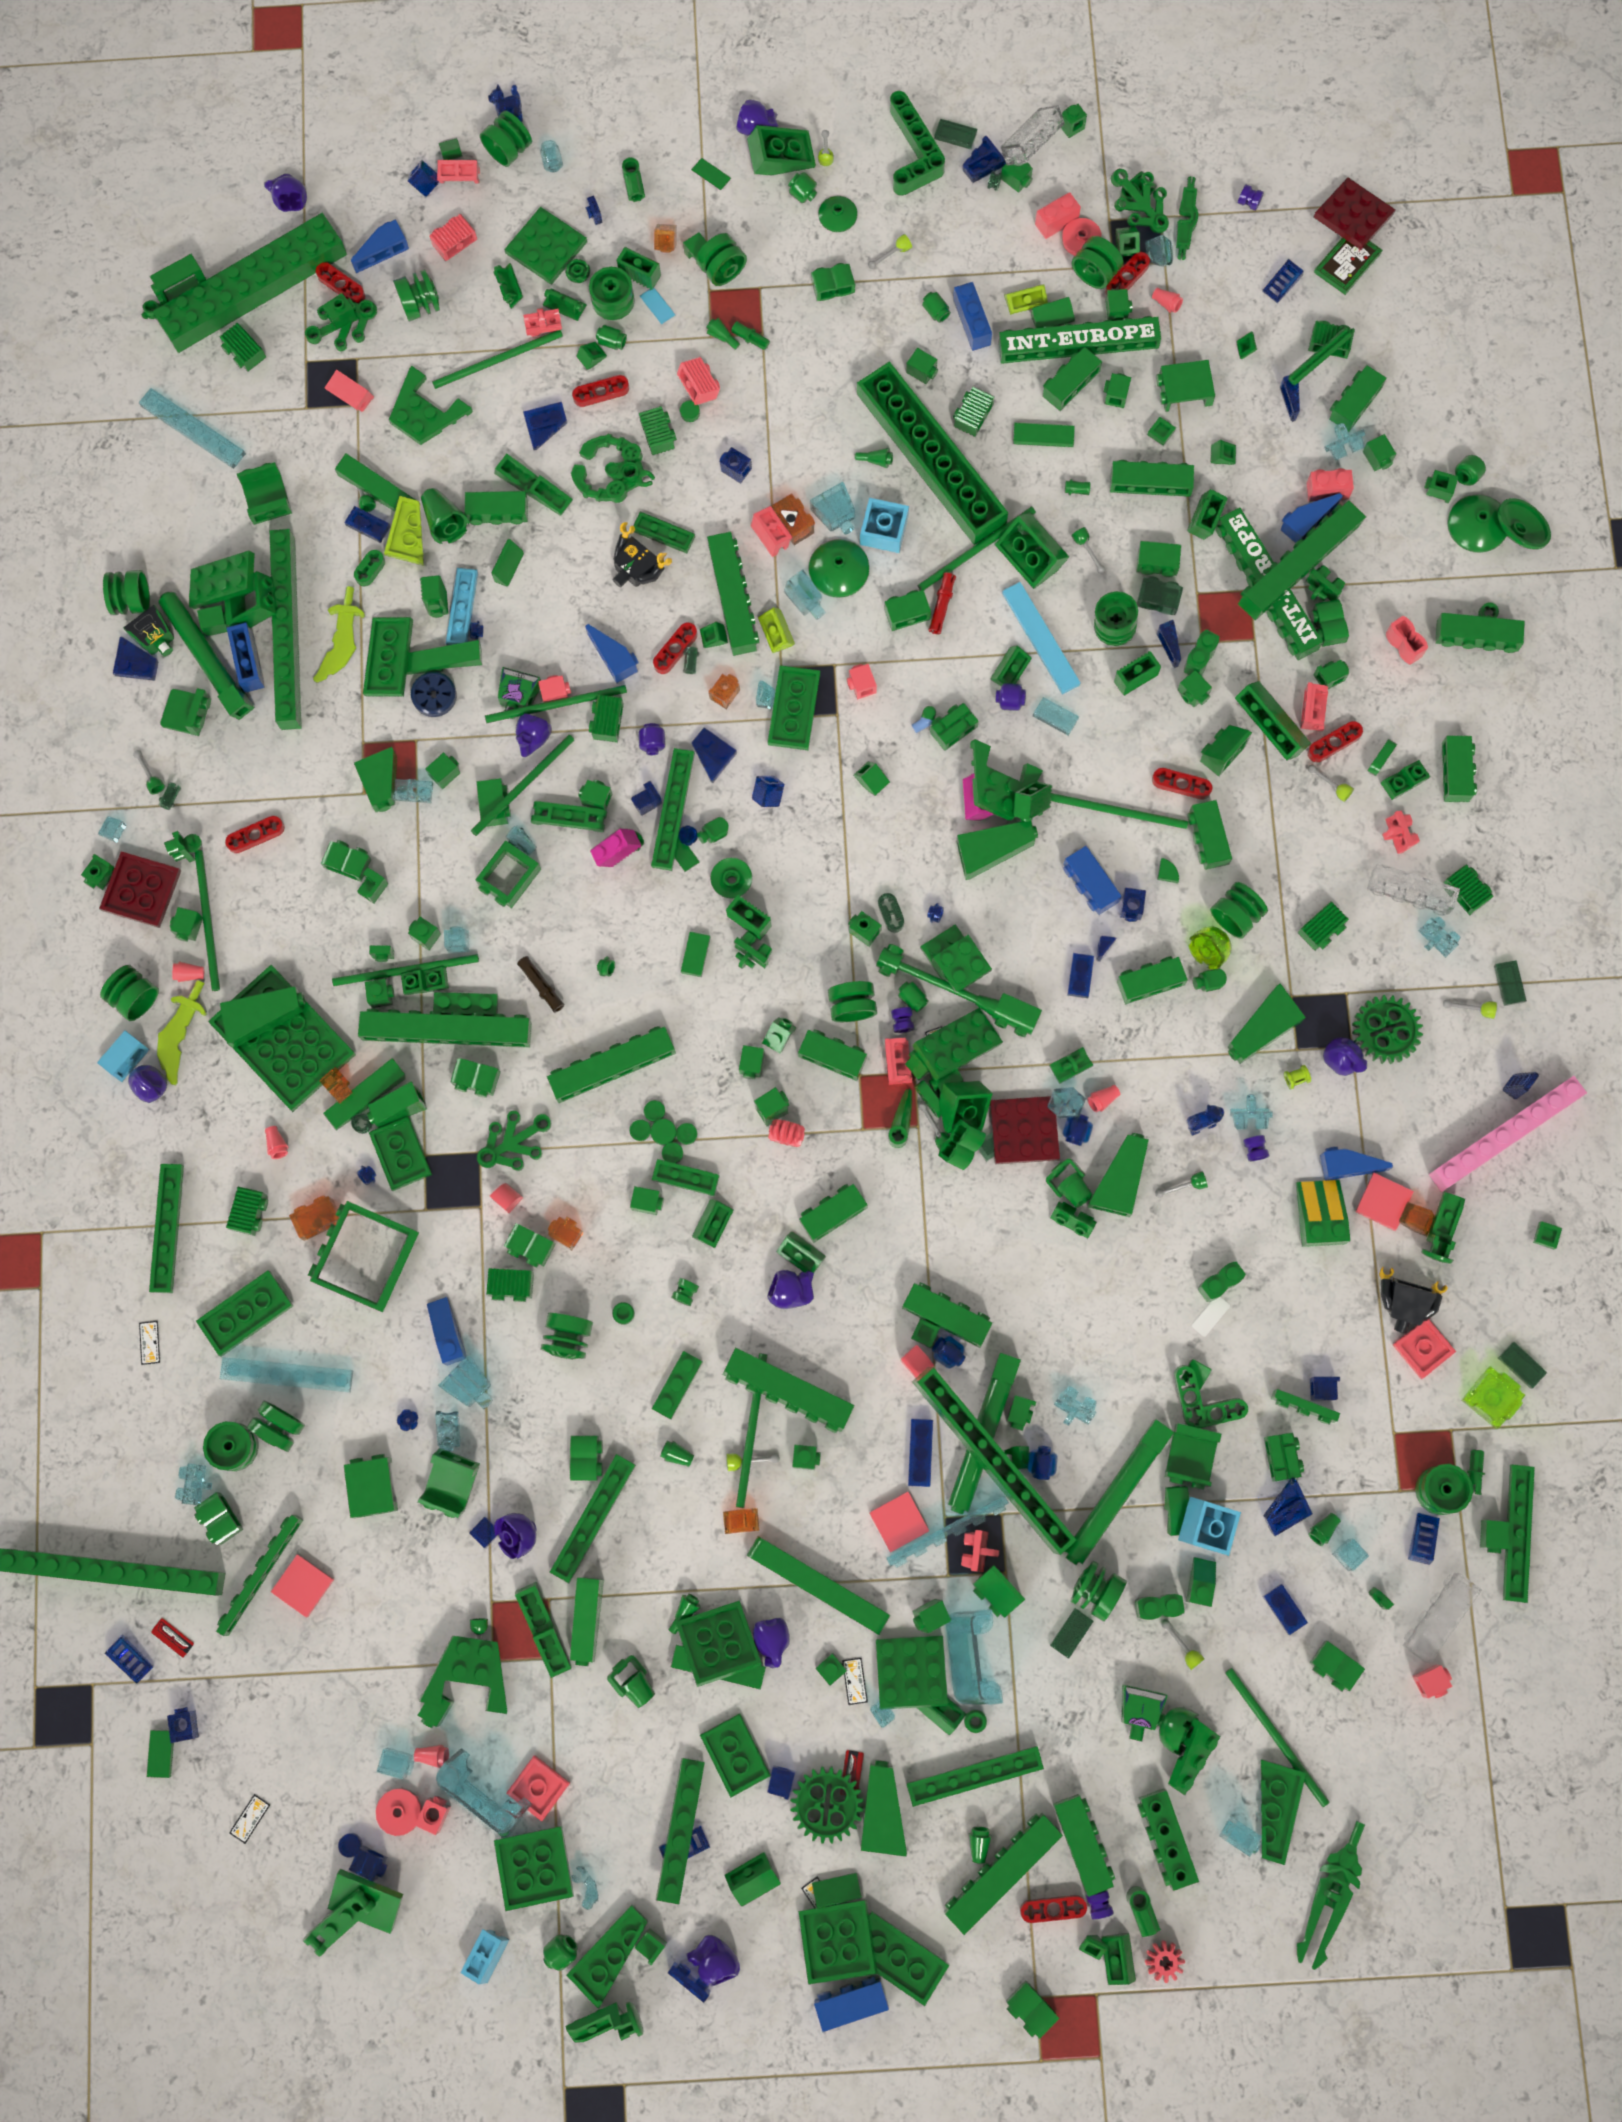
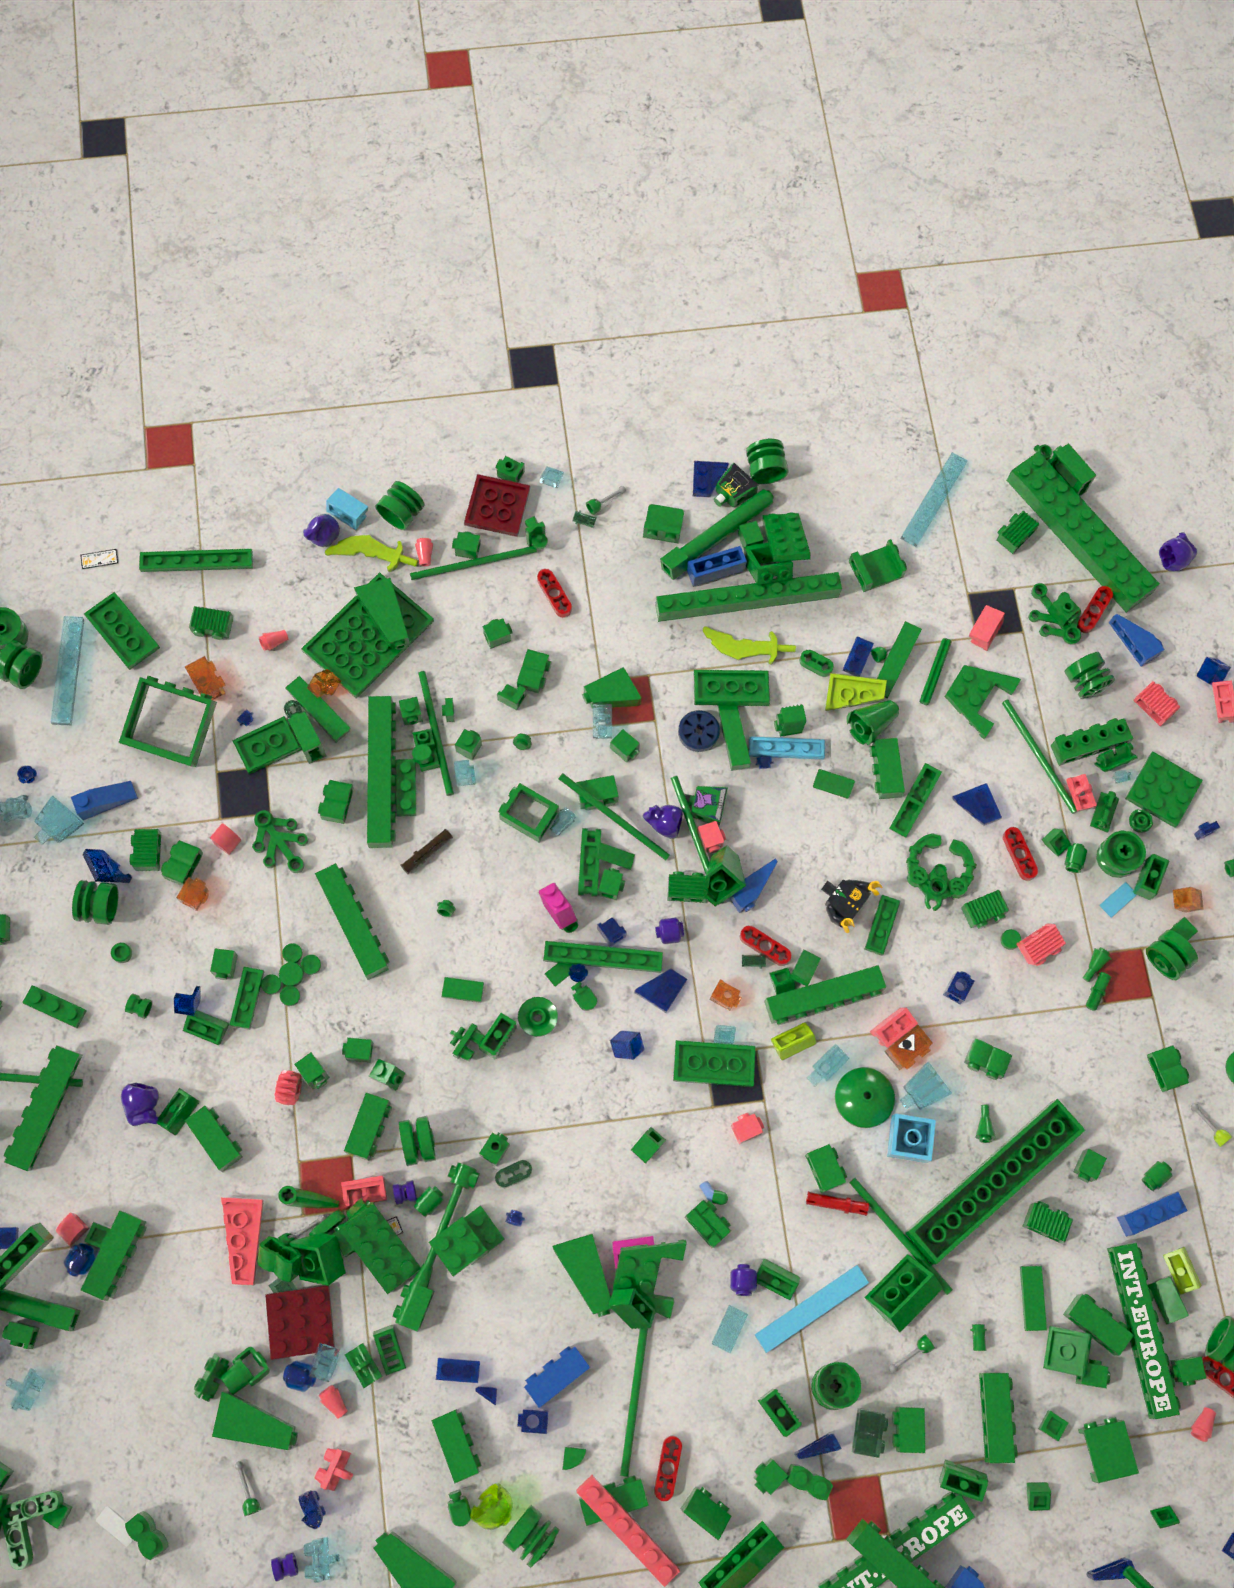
camera: 75 degrees right, 5 degrees down
(296, 897) = (497, 632): none -> green brick
(392, 449) = (935, 671): none -> green axle
(427, 877) = (522, 741): none -> green plate
(430, 982) = (421, 754): none -> green tile
(488, 306) = (1091, 741): none -> green brick
(525, 1329) = (103, 867): none -> clear blue wing
(528, 282) = (1121, 776): none -> clear light blue plate
(565, 789) = (615, 856): none -> green sticker
(600, 677) = (723, 876): none -> green slope
(687, 1239) = (187, 1004): none -> clear blue panel
(703, 608) = (805, 968): none -> green tile
(810, 446) = (987, 1059): none -> green brick
(933, 1185) = (243, 1228): none -> coral wing
(1040, 1049) = (380, 1333): none -> green slope
(1095, 408) = (1067, 1351): none -> green tile
(1176, 1102) = (331, 1477): none -> coral hips
(1237, 820) = (628, 1530): none -> coral plate

